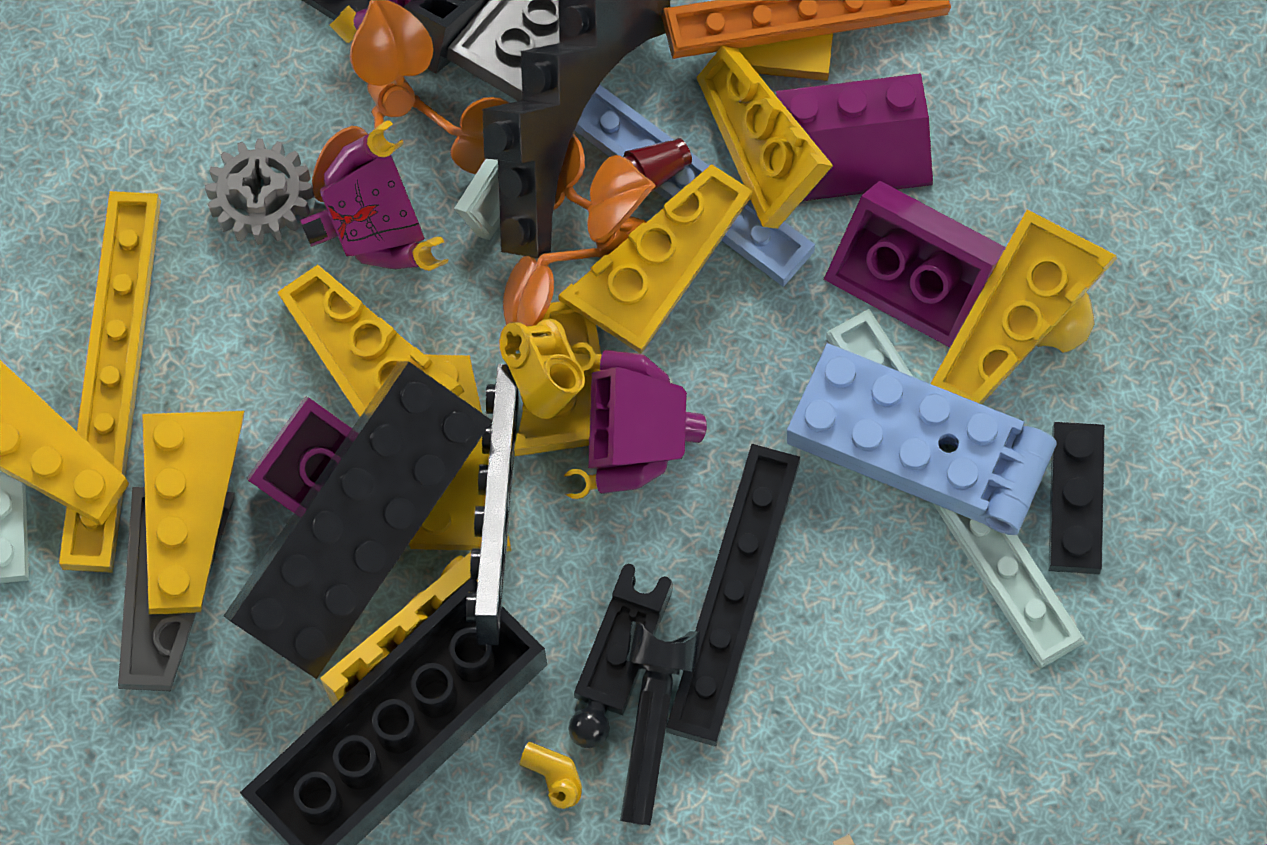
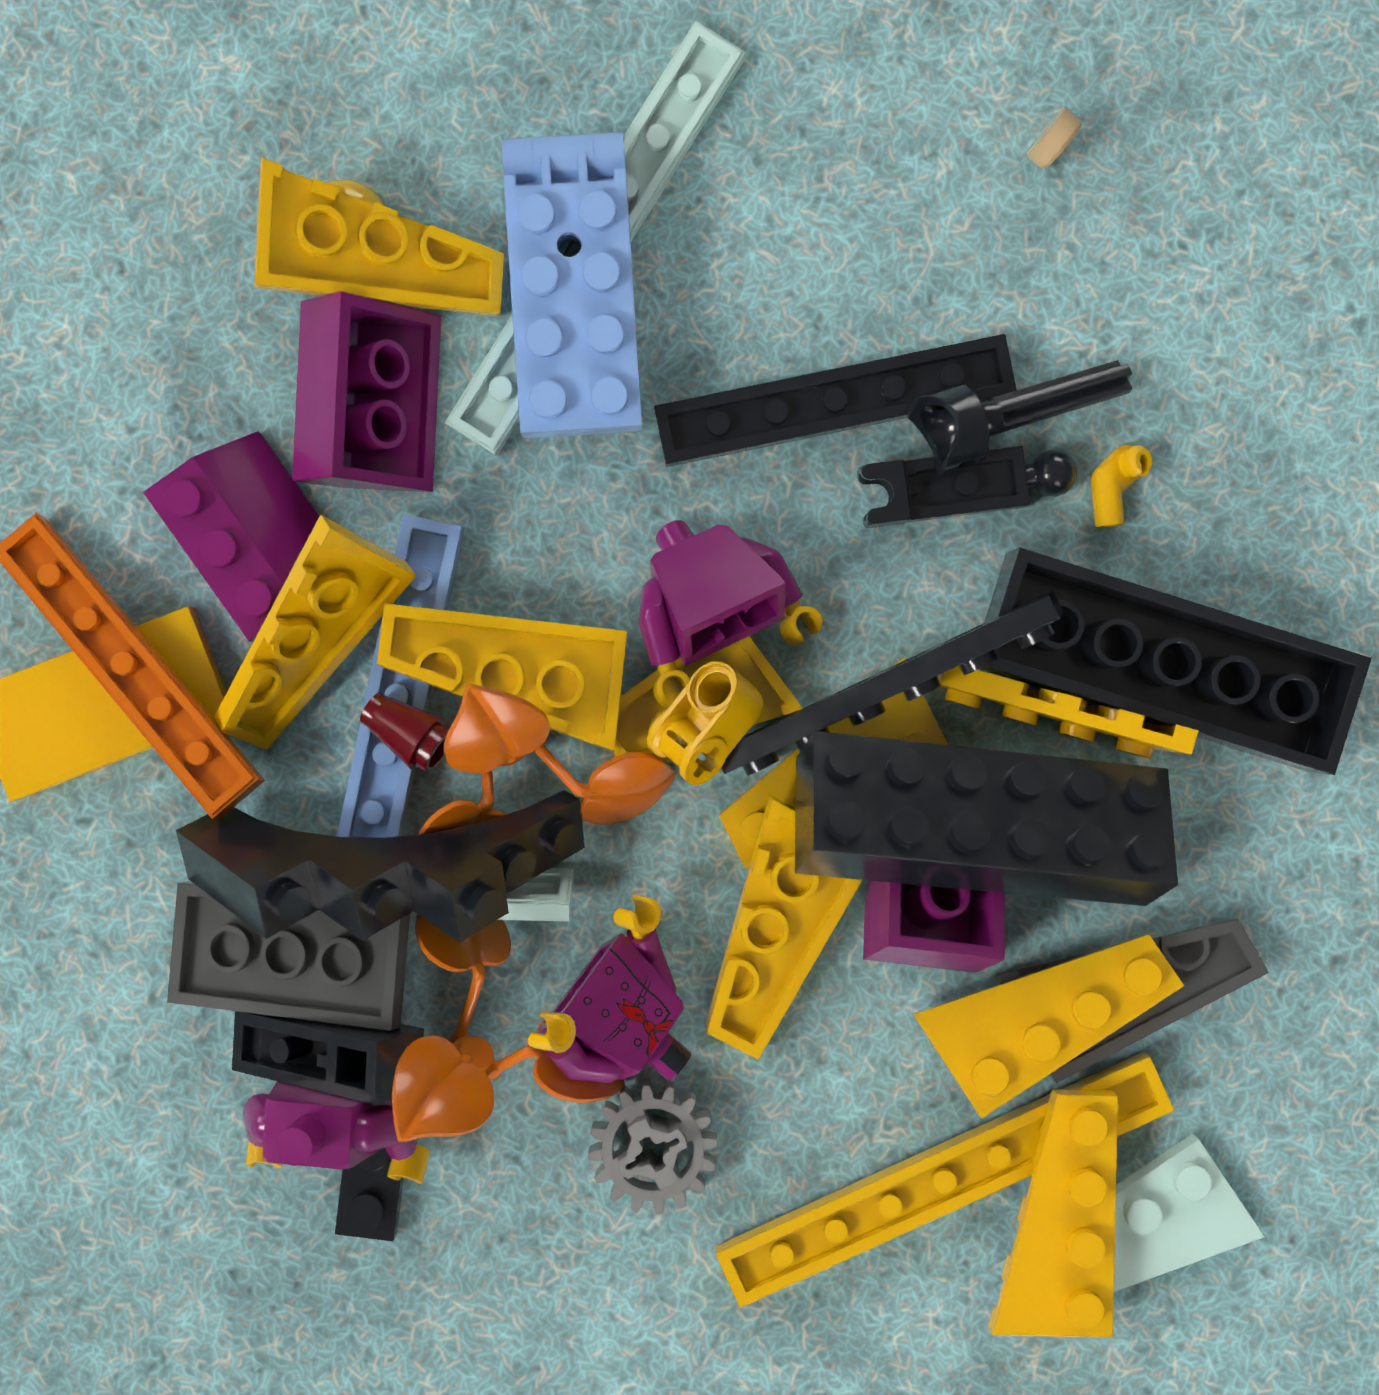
camera: 120 degrees left, 20 degrees up
(1076, 498) = (543, 103): black plate -> none

